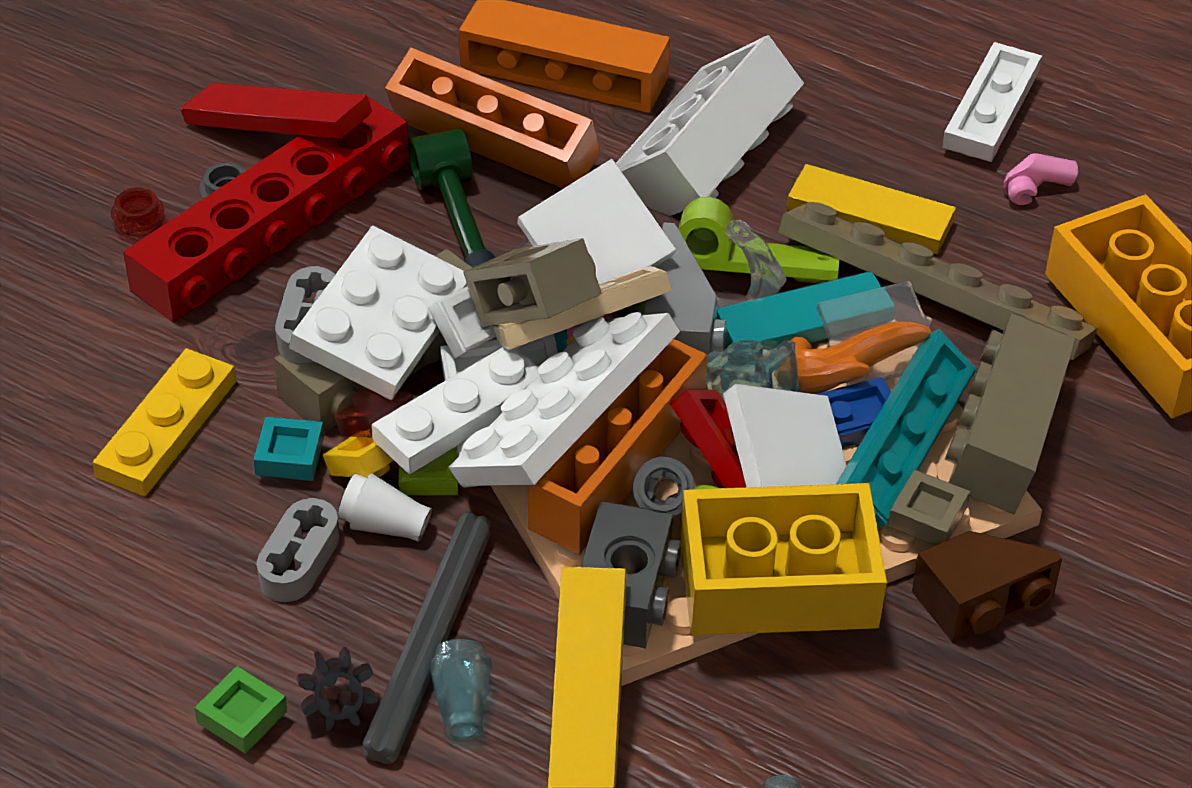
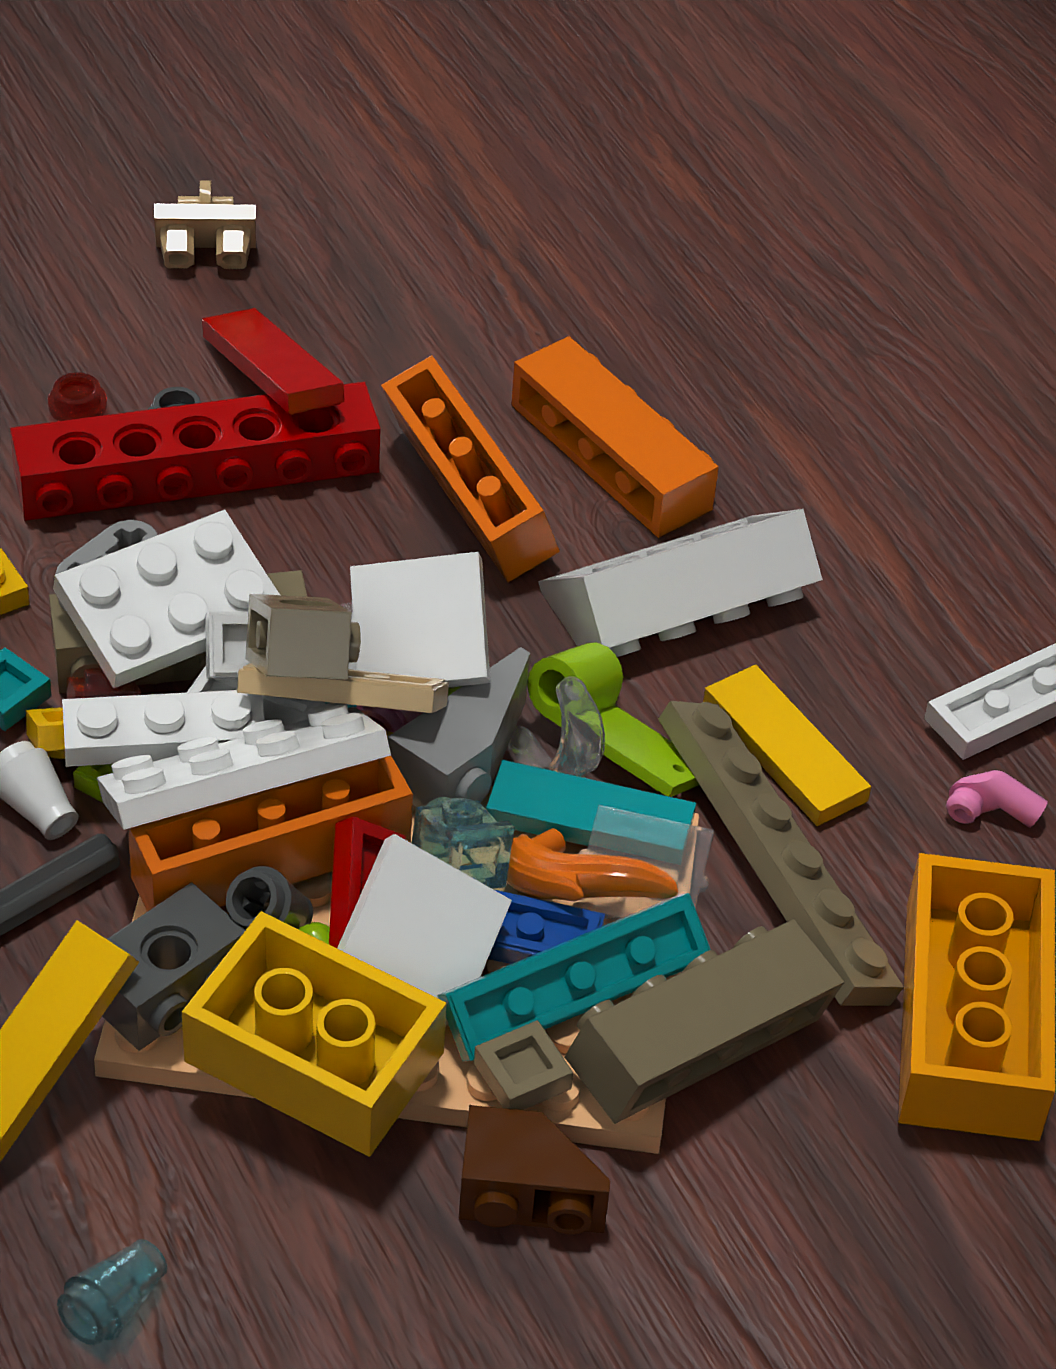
camera: 30 degrees right, 0 degrees up
(119, 35) = (205, 223): none -> tan hips
(444, 162) = (388, 486): dark green piece -> none

